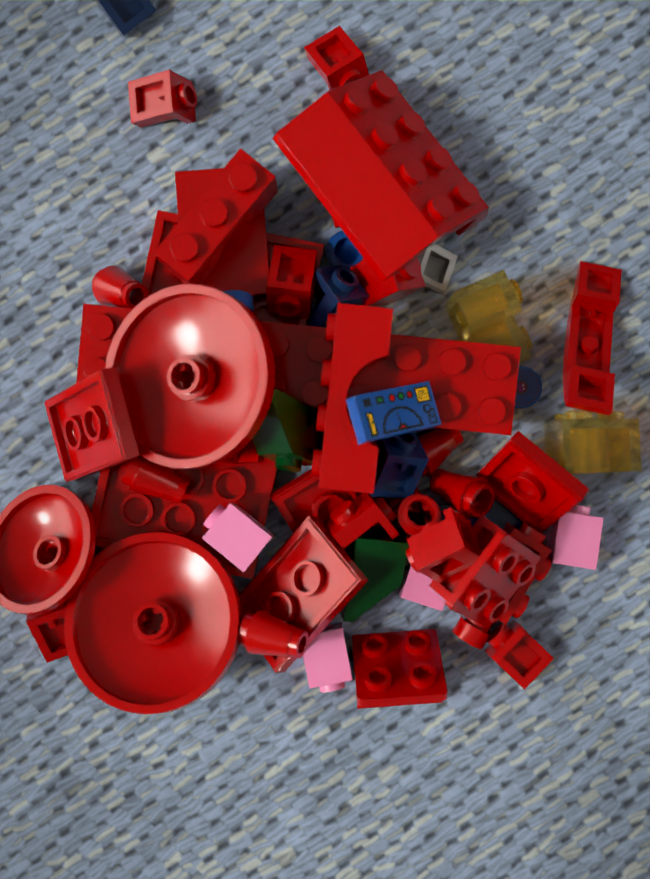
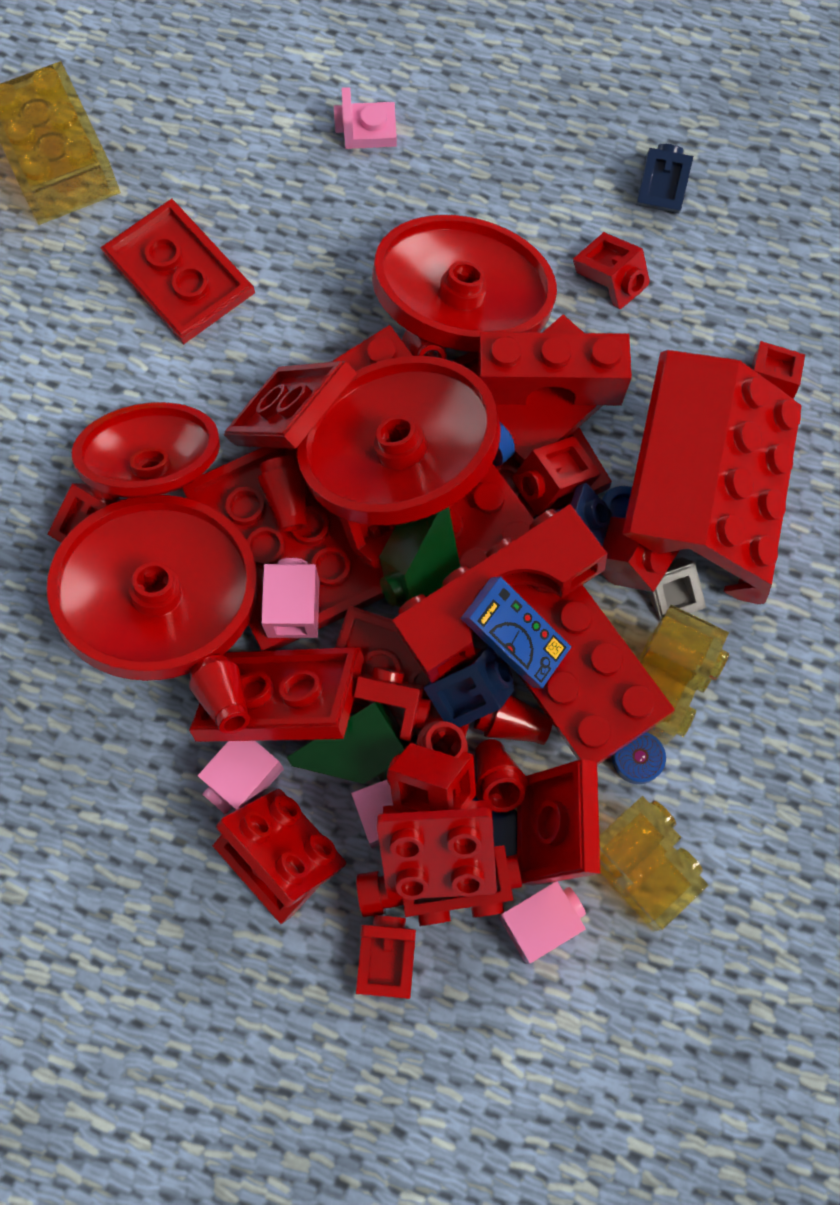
camera: 50 degrees right, 15 degrees down
(89, 220) = (462, 278): none -> red dish
(589, 339) = (742, 780): red slope -> none

